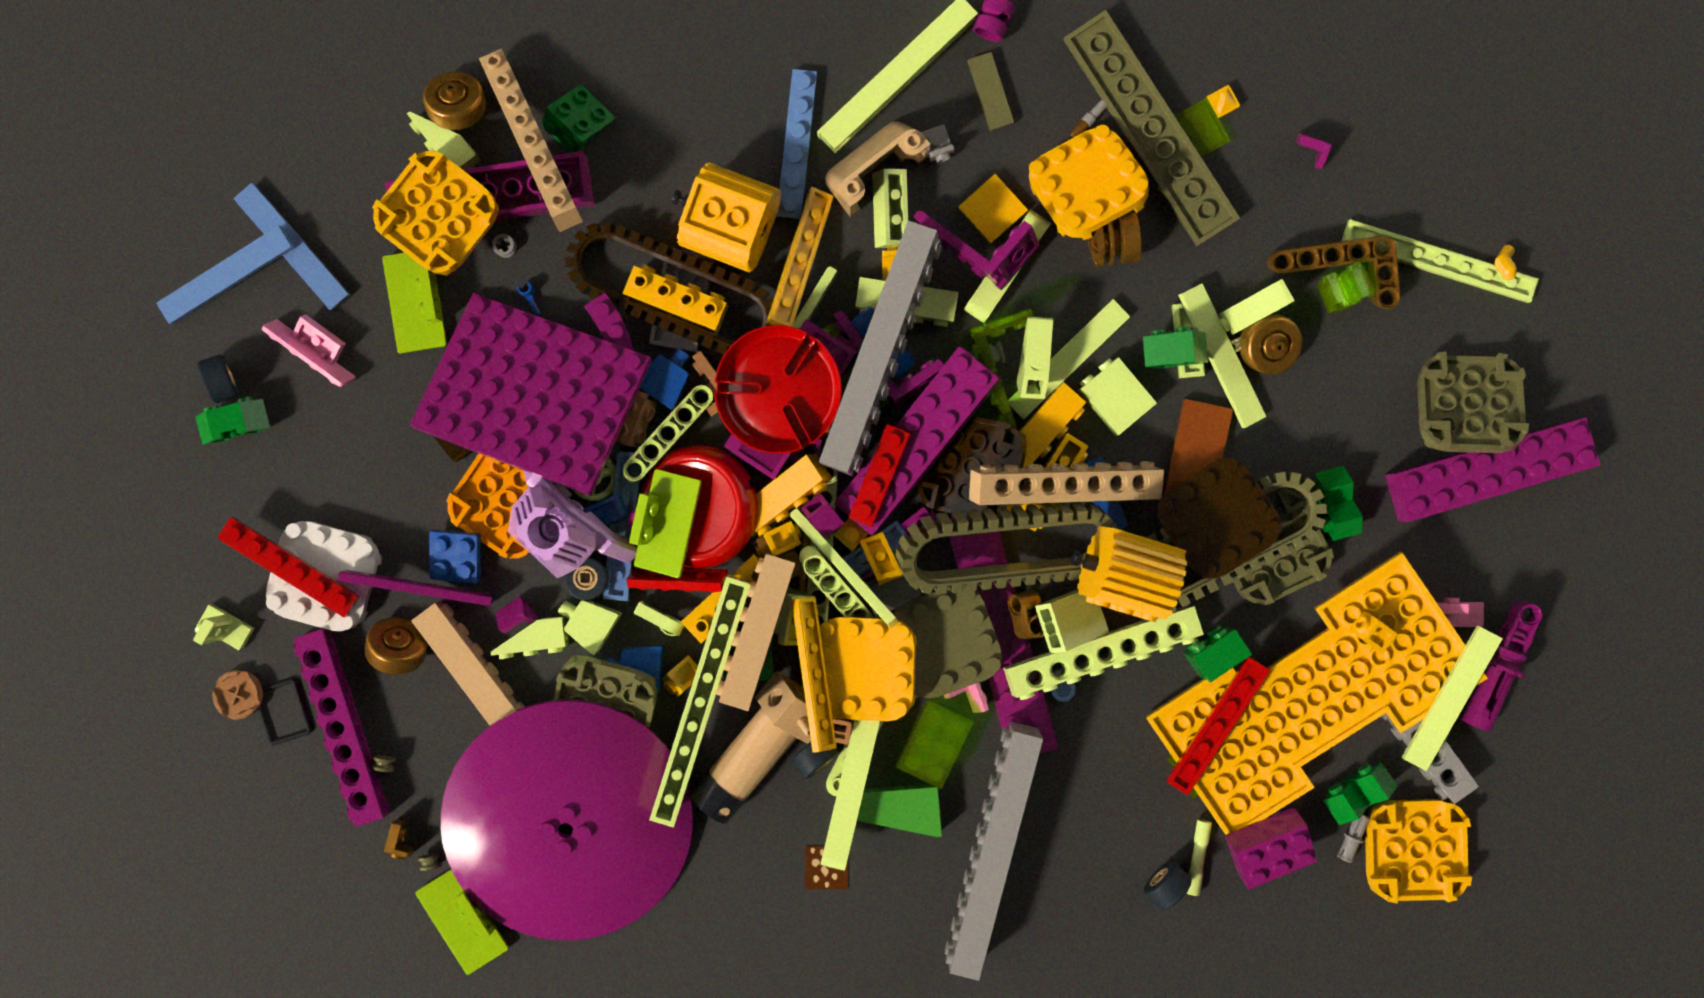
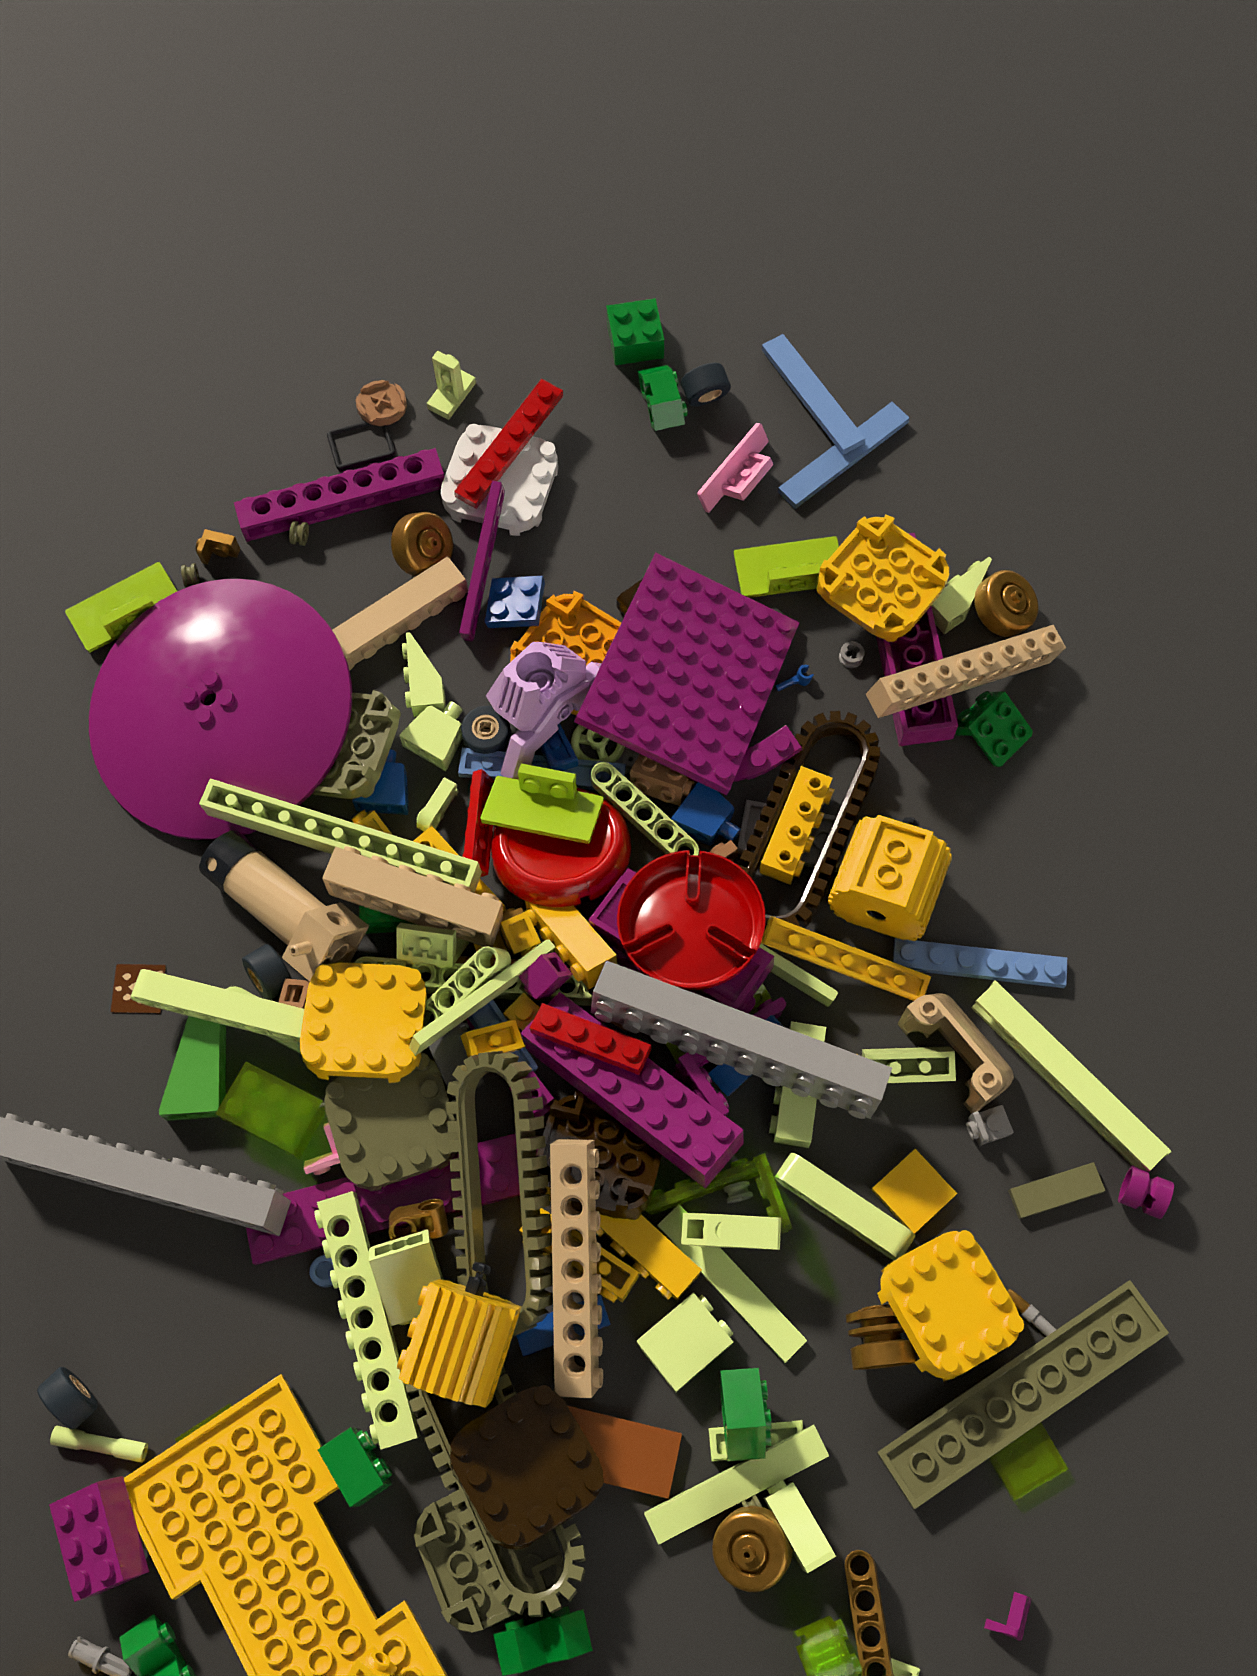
camera: 90 degrees right, 20 degrees down
(155, 448) = (635, 331): none -> green brick
(514, 614) = (450, 659): magenta tile -> none
(814, 674) = (360, 958): yellow tile -> none
(1006, 258) = (849, 1193): magenta bracket -> none
(1217, 725) = (264, 1465): red plate -> none
(1223, 101) = (1064, 1491): yellow tile -> none

